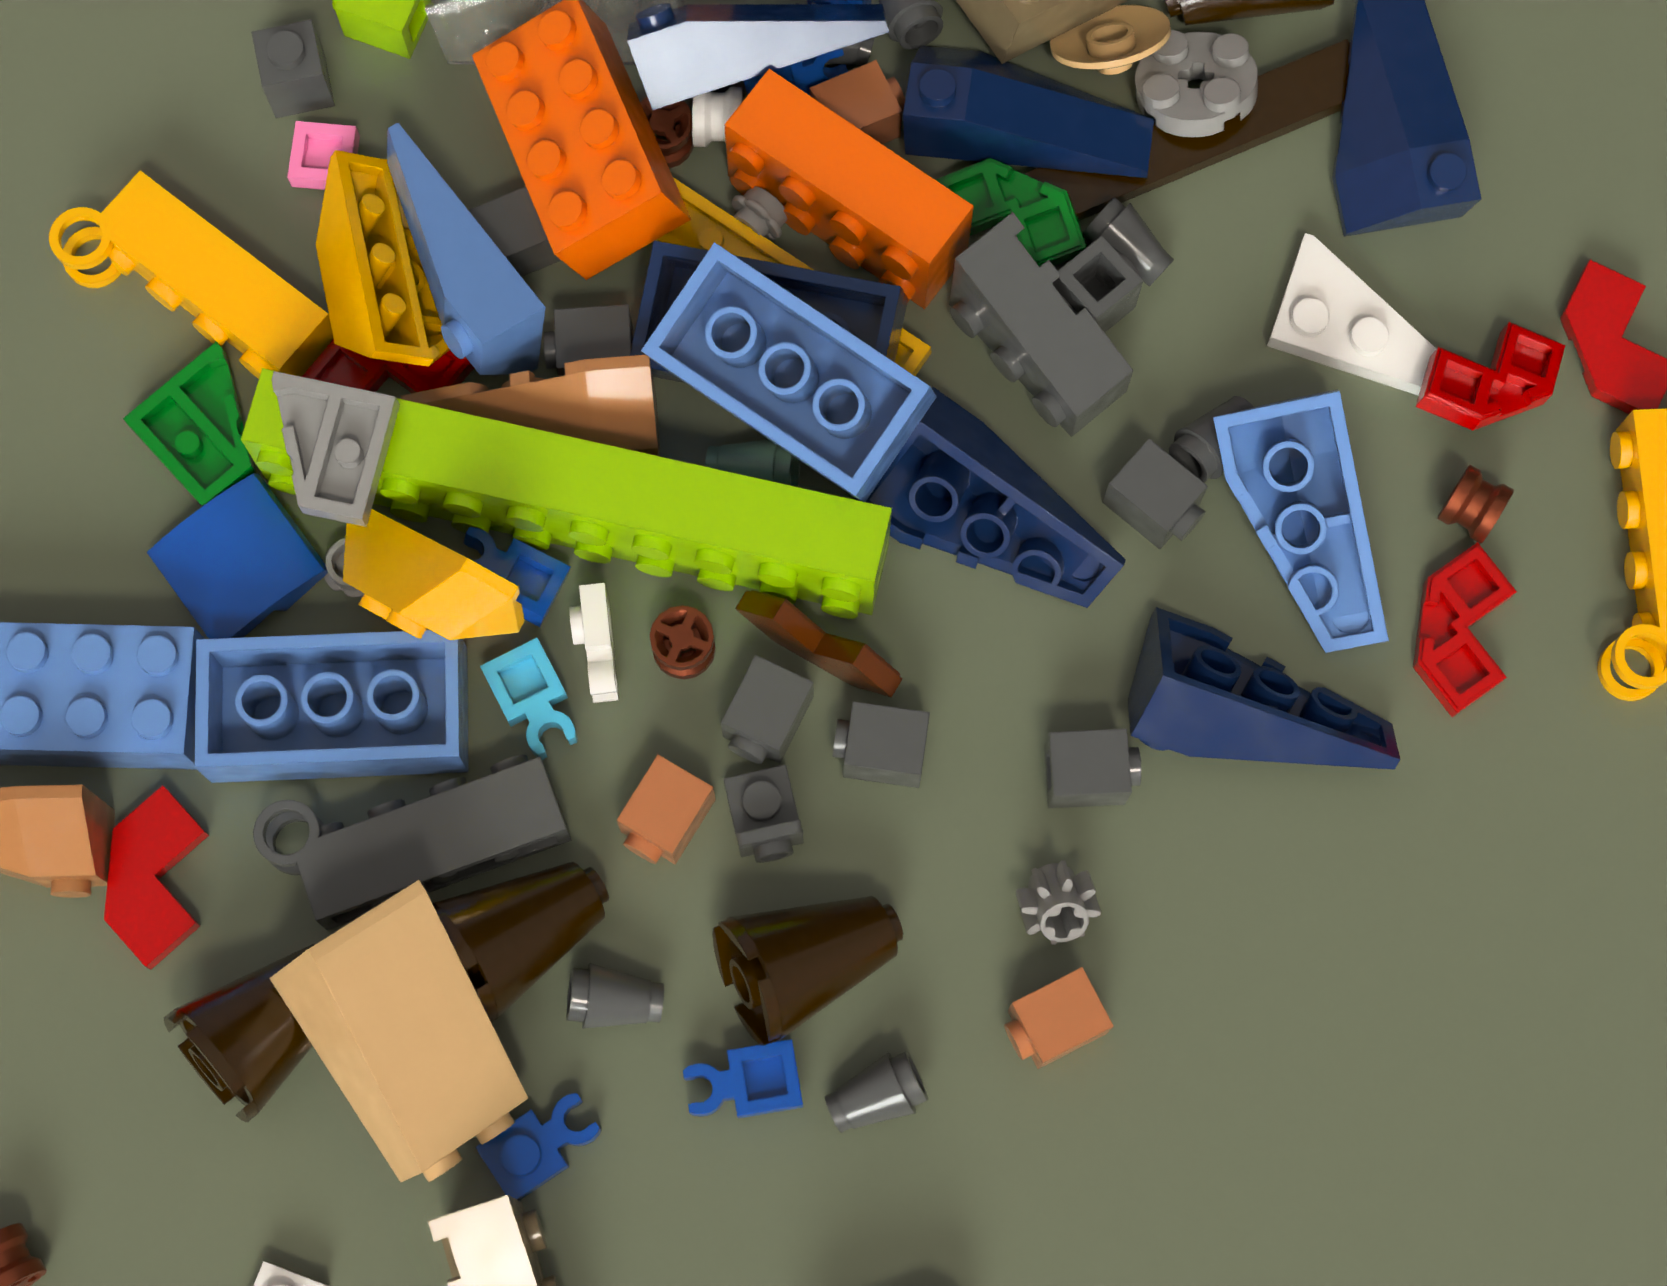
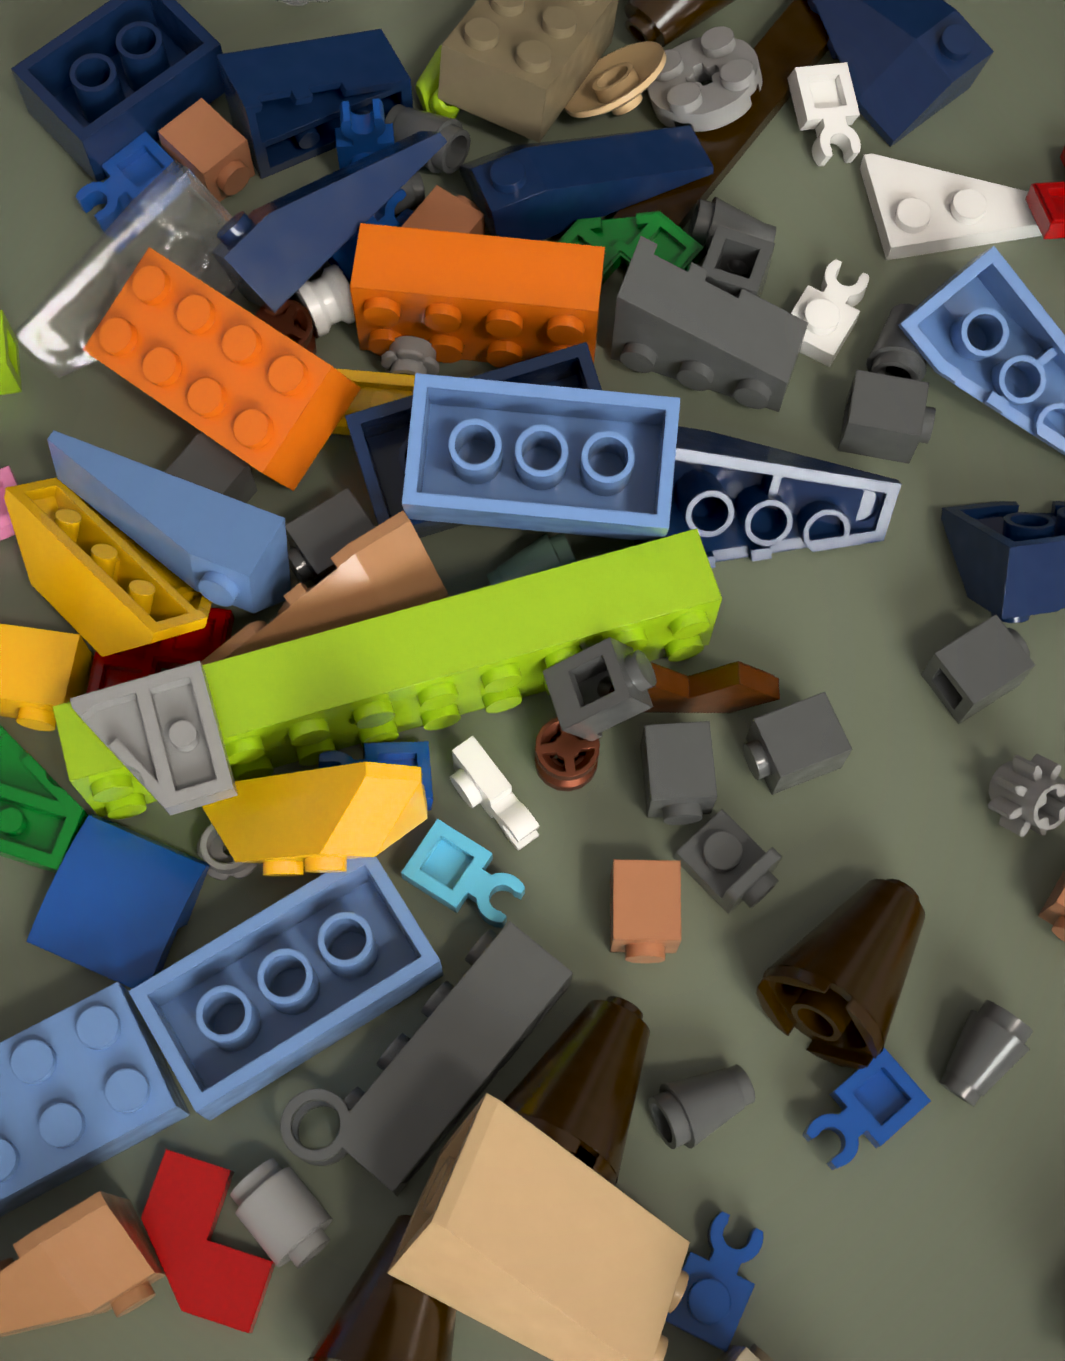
camera: 30 degrees left, 5 degrees down
(223, 889) = (281, 1214): none -> light grey brick
(739, 602) = (583, 683): none -> dark grey brick
(1167, 373) = (829, 314): none -> white plate
(1301, 163) = (828, 104): none -> white plate

